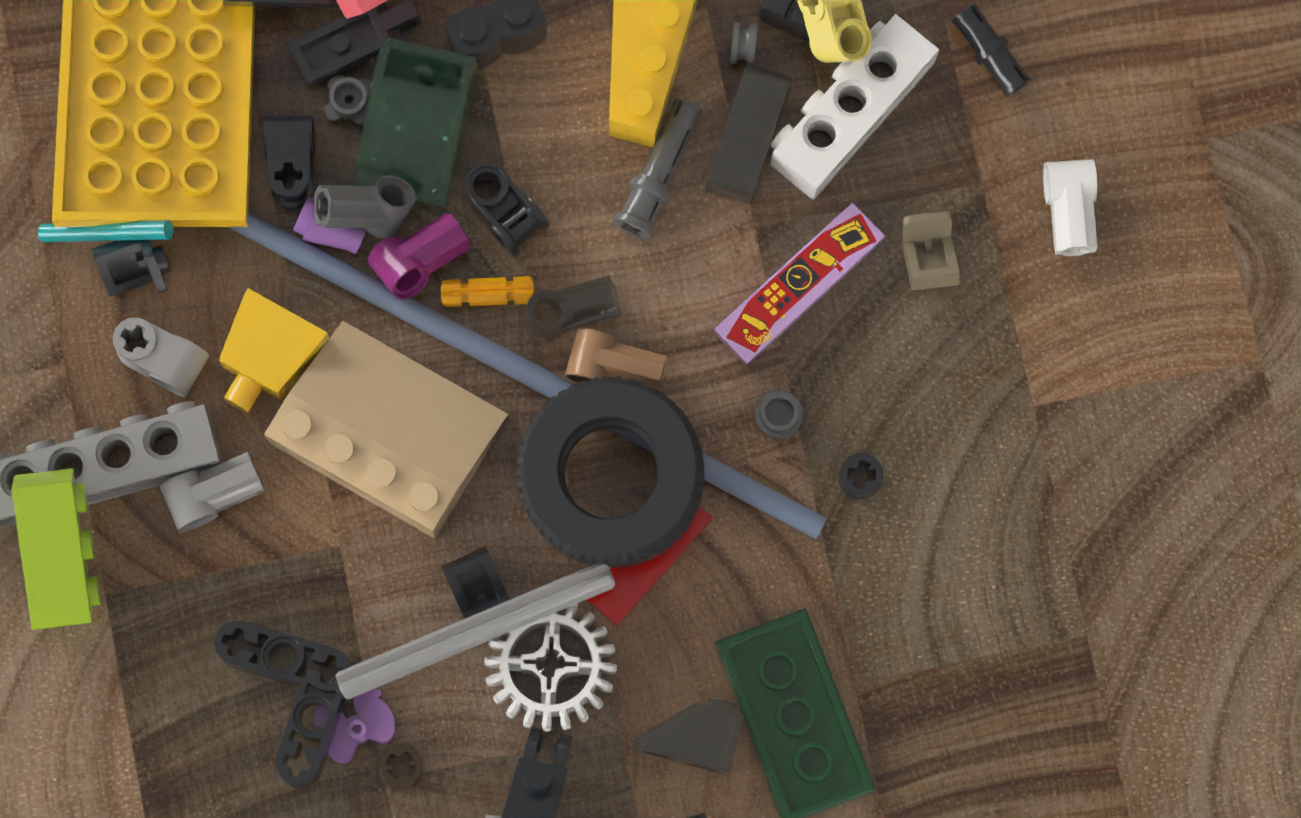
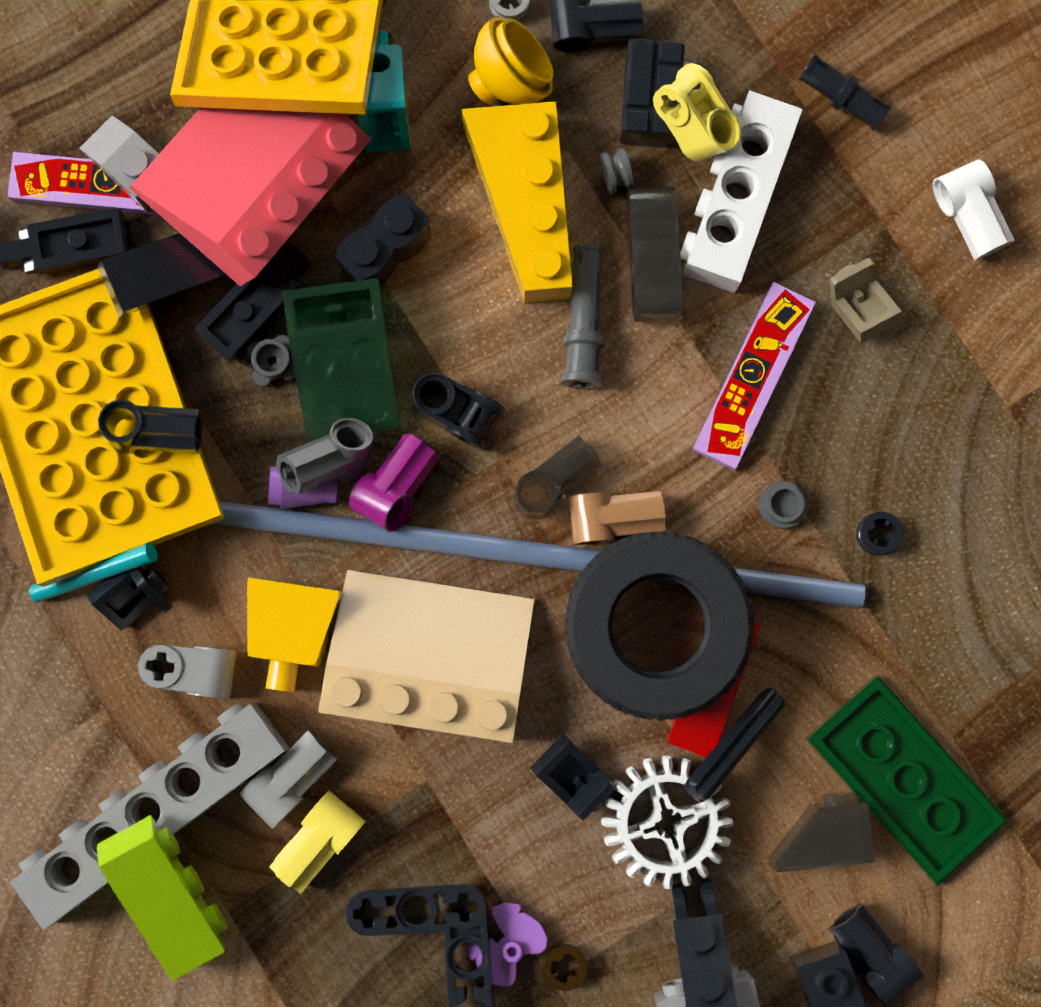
camera: 20 degrees left, 5 degrees up
(216, 118) = (155, 427): none -> black piece
(227, 552) = (323, 834): none -> light yellow piece
(290, 152) = (235, 431): black piece -> none
(475, 630) = (588, 822): light grey axle -> none
(486, 291) = (470, 492): light orange axle -> none
(642, 615) = (734, 745): none -> black axle

